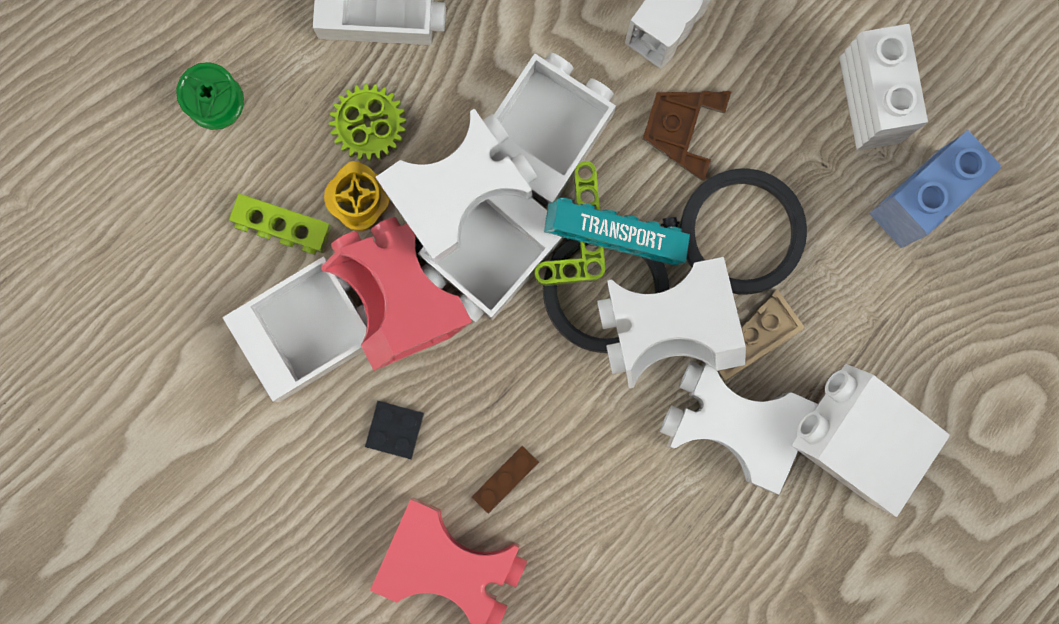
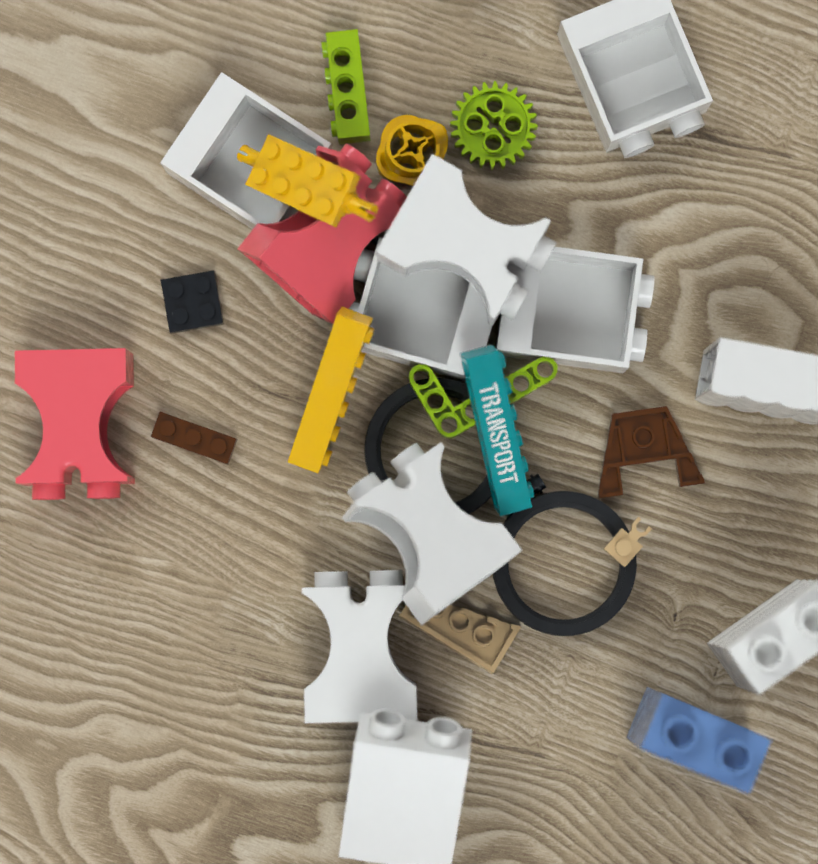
camera: 70 degrees right, 0 degrees up
(347, 290) = (305, 181): none -> yellow plate
(522, 351) = (330, 390): none -> yellow brick
(752, 176) = (625, 545): none -> tan plate

